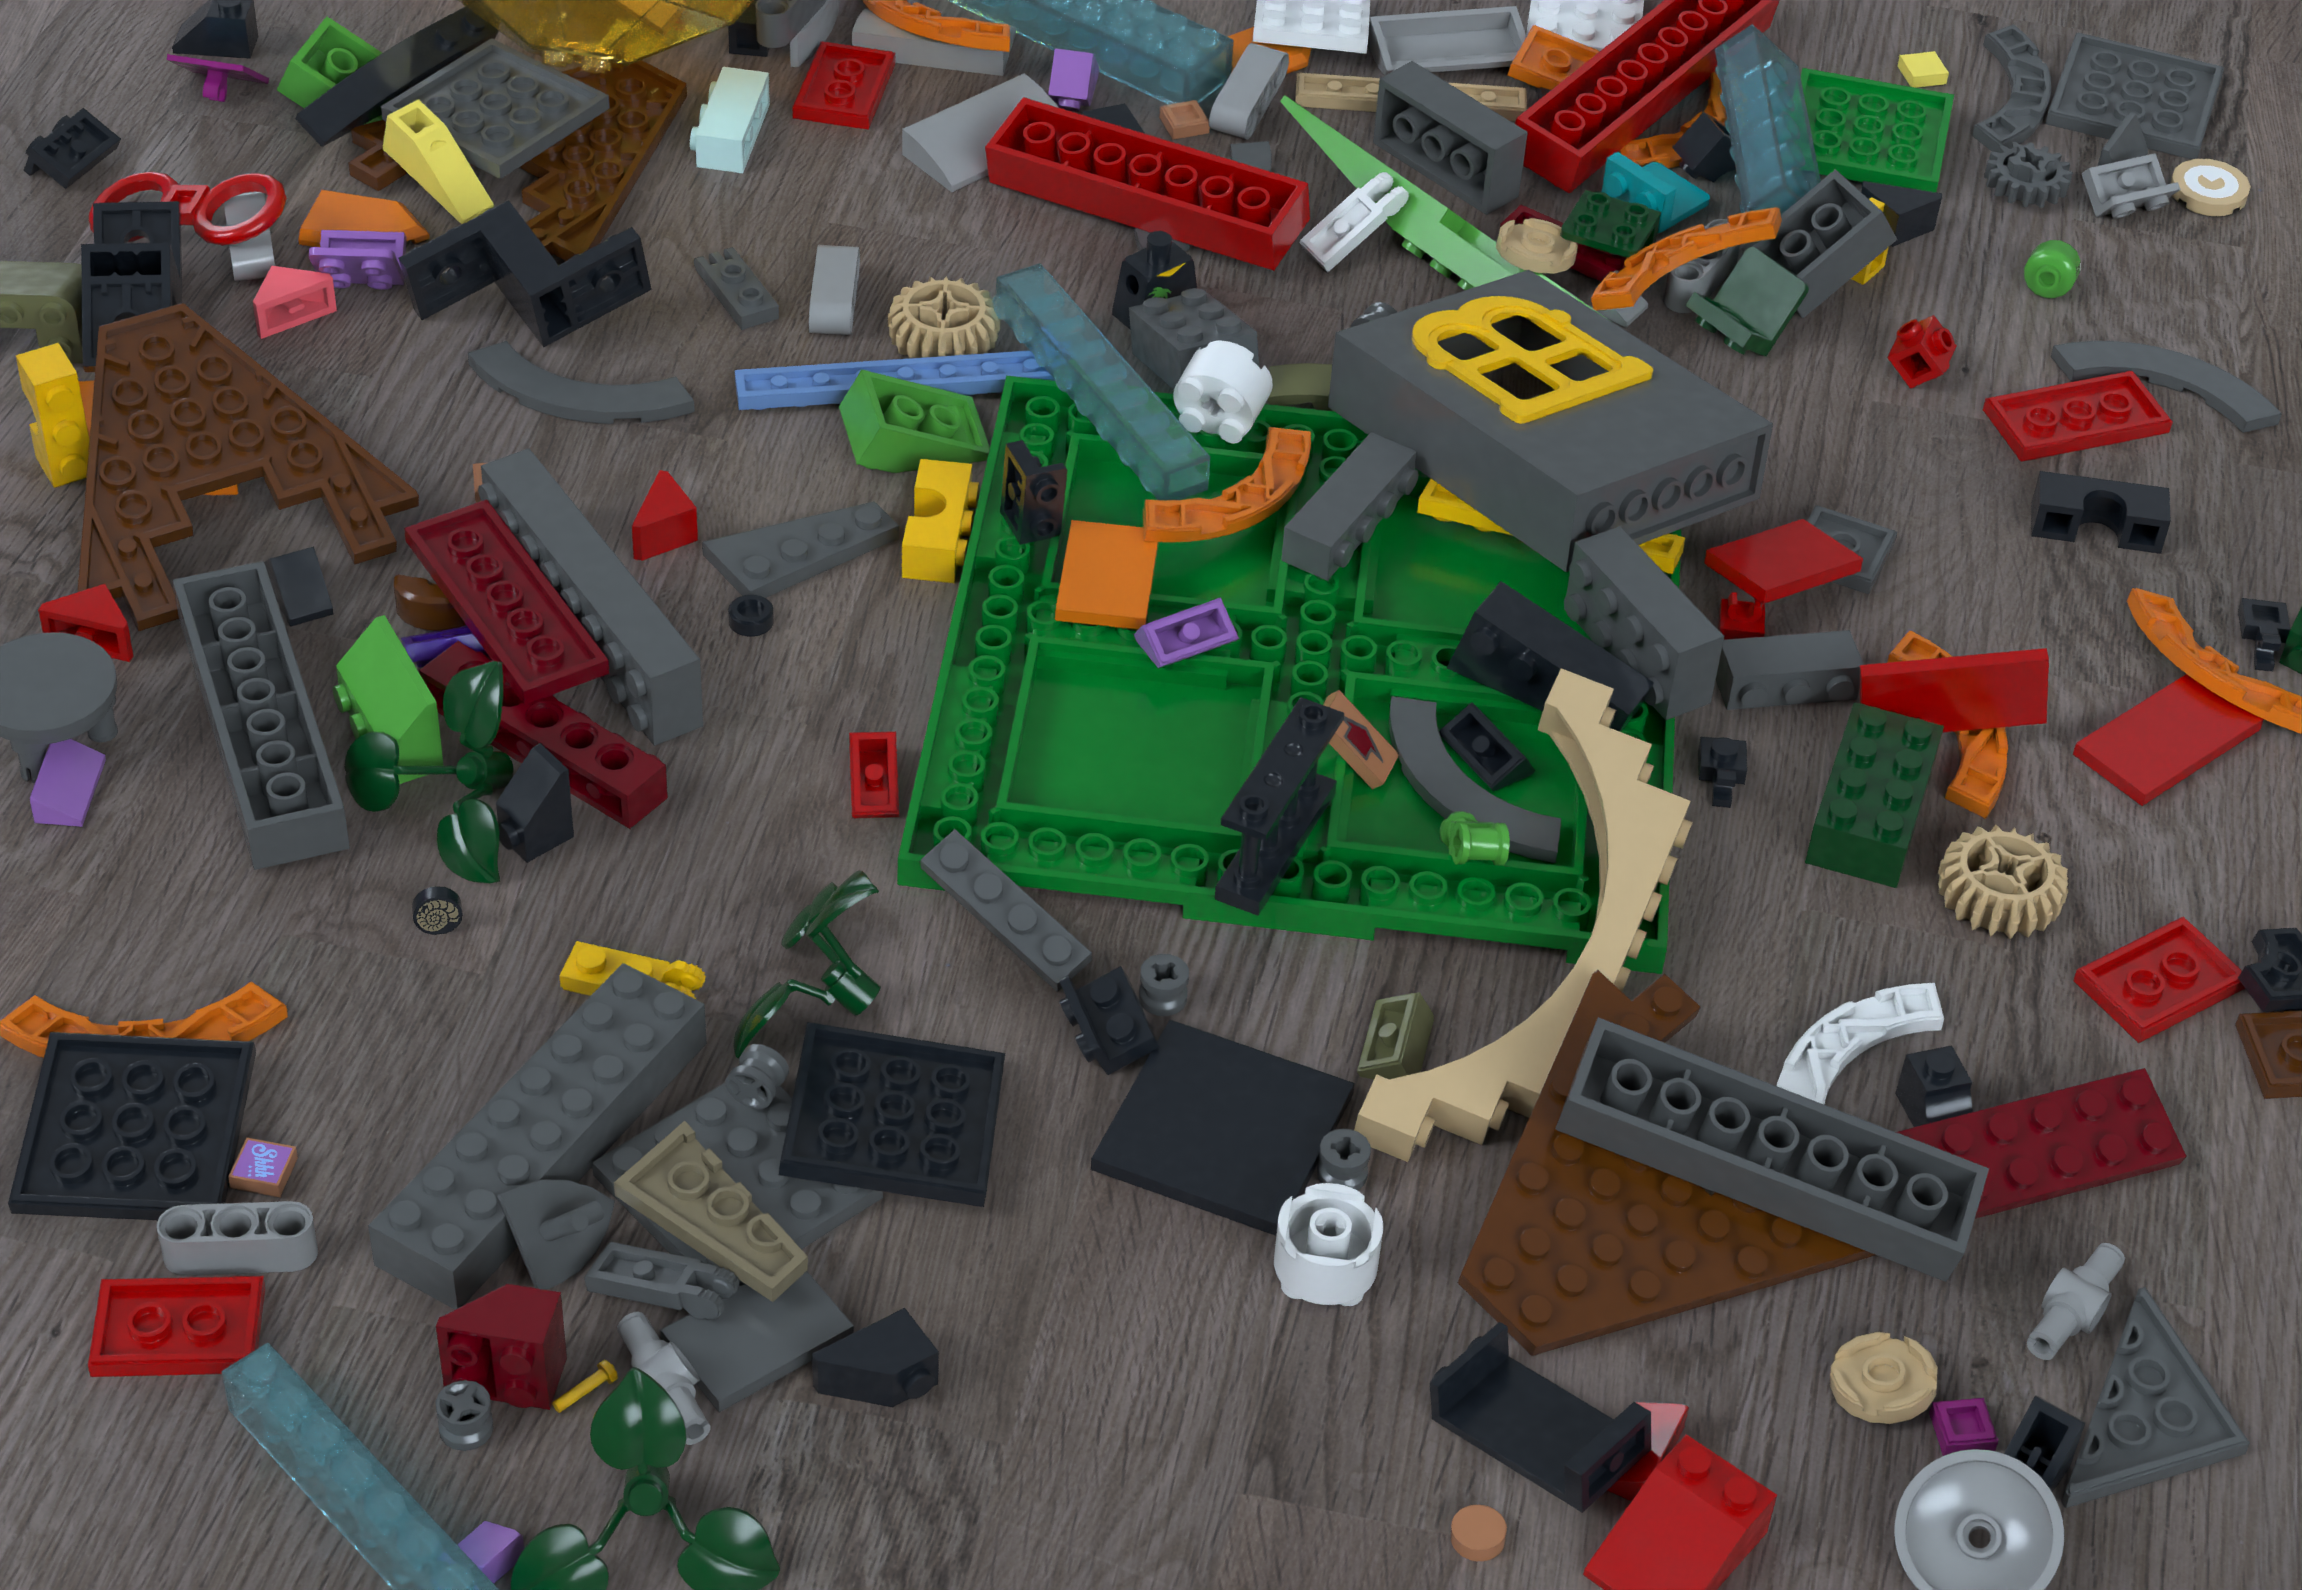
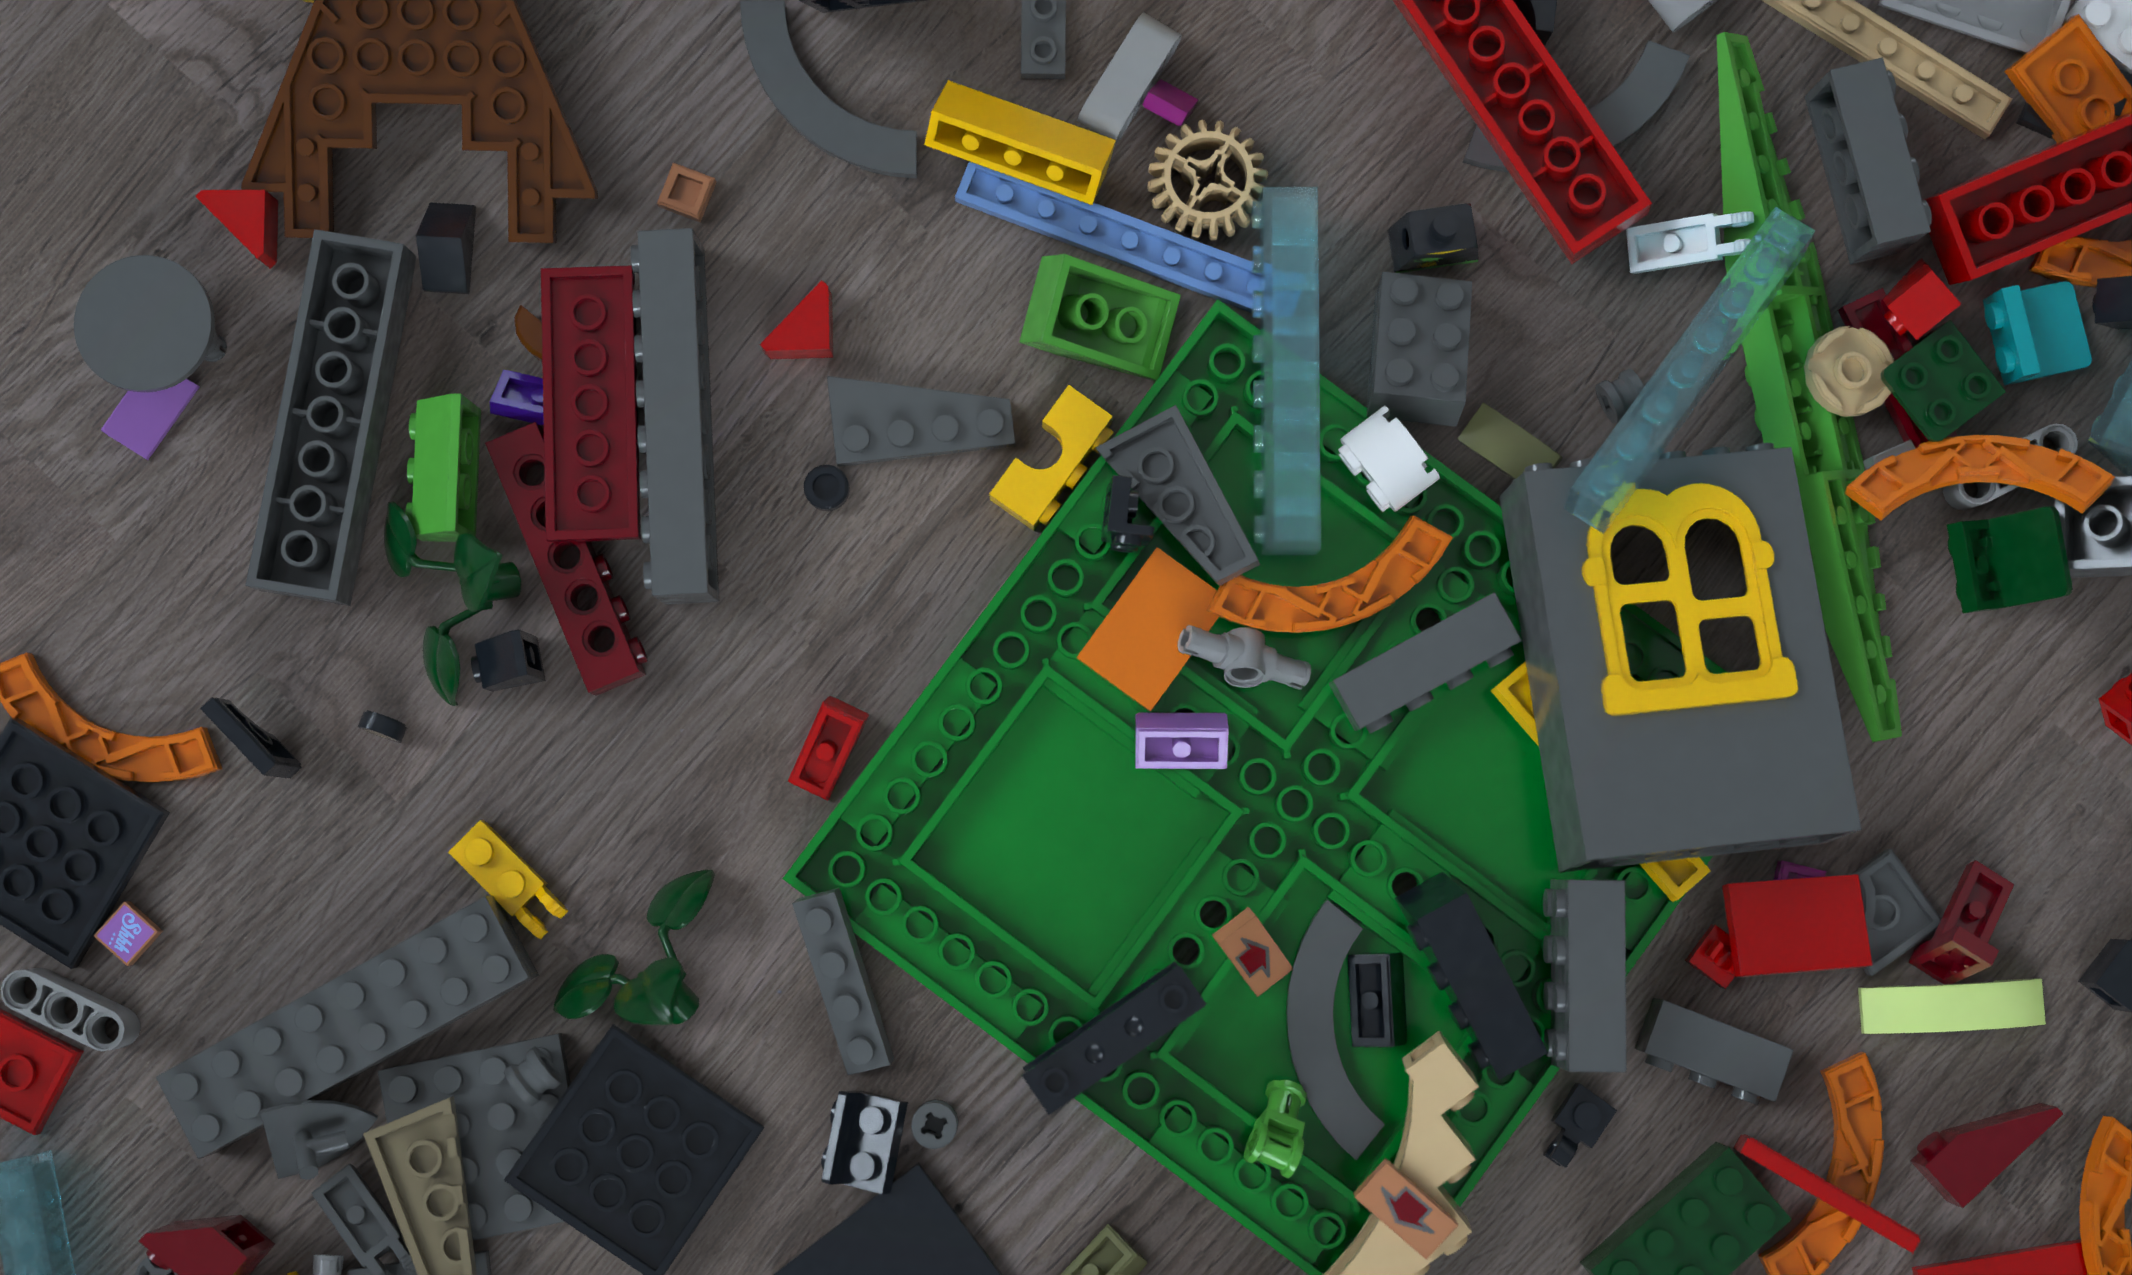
camera: 30 degrees right, 40 degrees up
(322, 939) = (254, 742): none -> black tile
(771, 344) = (1019, 142): none -> yellow brick
(878, 290) = (1170, 102): none -> magenta tile
(1092, 474) = (1182, 492): none -> dark grey wing
(1181, 558) = (1244, 657): none -> light grey pin
(1413, 238) = (1688, 370): none -> clear light blue brick
(1555, 185) = (1919, 301): none -> red slope
(1622, 799) = (1405, 1209): none -> nougat tile
(1918, 522) = (1966, 927): none -> dark red bracket
(1943, 573) = (1951, 1007): none -> yellowish green slope
(2060, 634) = (1971, 1155): none -> dark red slope

